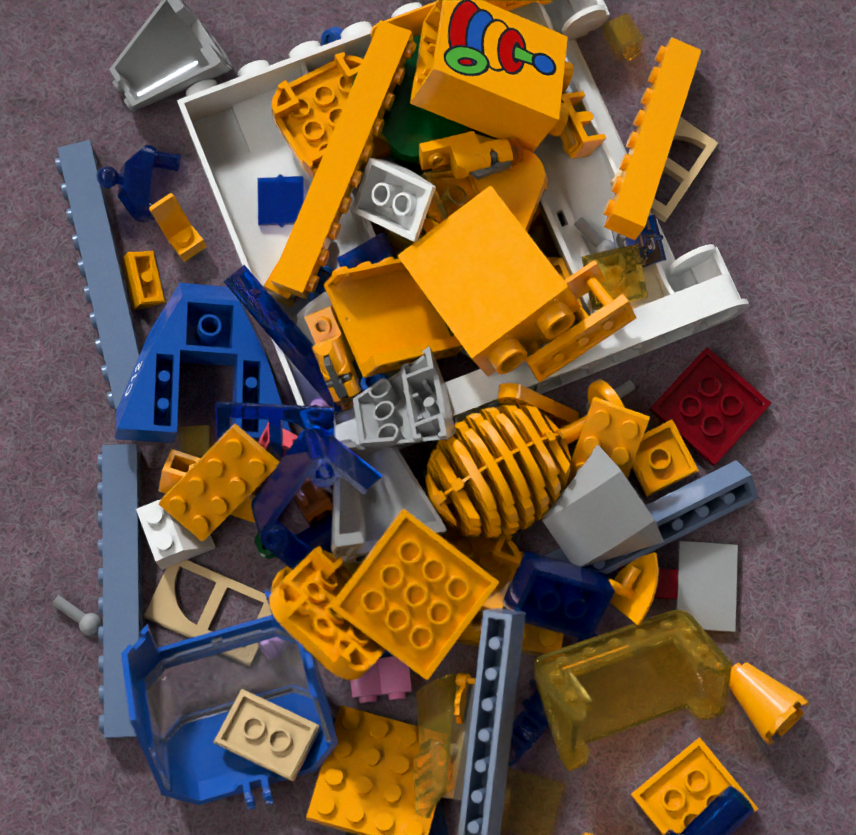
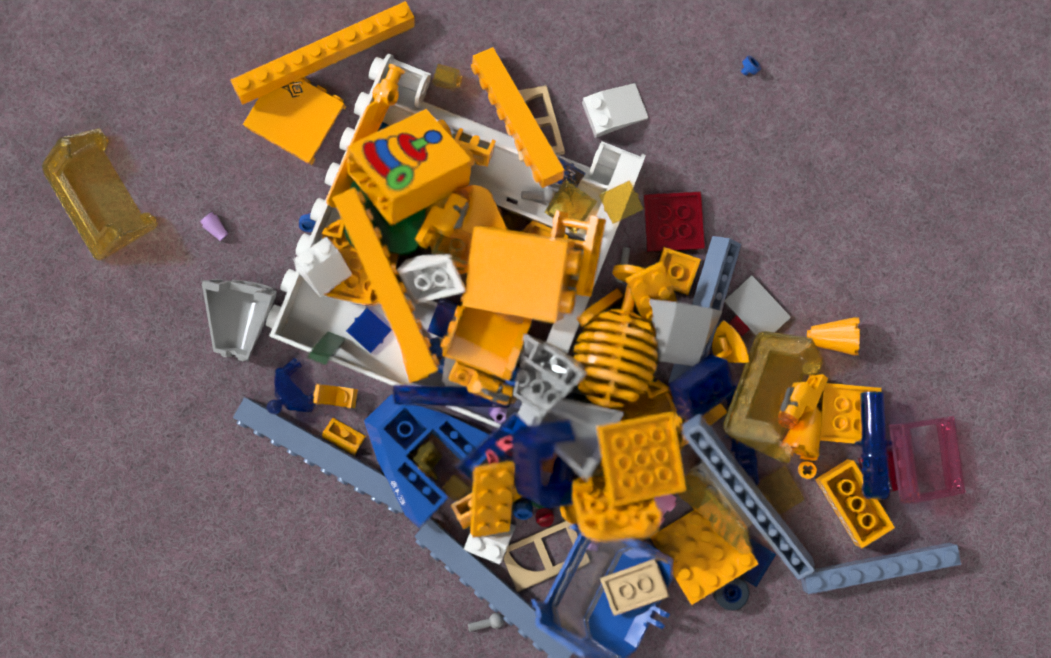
camera: 55 degrees left, 10 degrees up
(199, 383) = (427, 458): none -> clear yellow bracket
(219, 167) = (326, 348): none -> dark green tile
(239, 538) = (523, 510): none -> blue tile
(254, 569) = (544, 517): none -> dark red tile
(299, 82) = (322, 267): none -> white slope
(462, 680) = (698, 470): light orange piece -> none
(577, 819) = (807, 476): none -> light orange bush
(620, 769) = (805, 436): none -> light orange cone
(653, 722) = (801, 398): none -> light orange plate
(671, 320) = (620, 202): none -> clear yellow piece
(765, 233) = (614, 109): none -> white slope

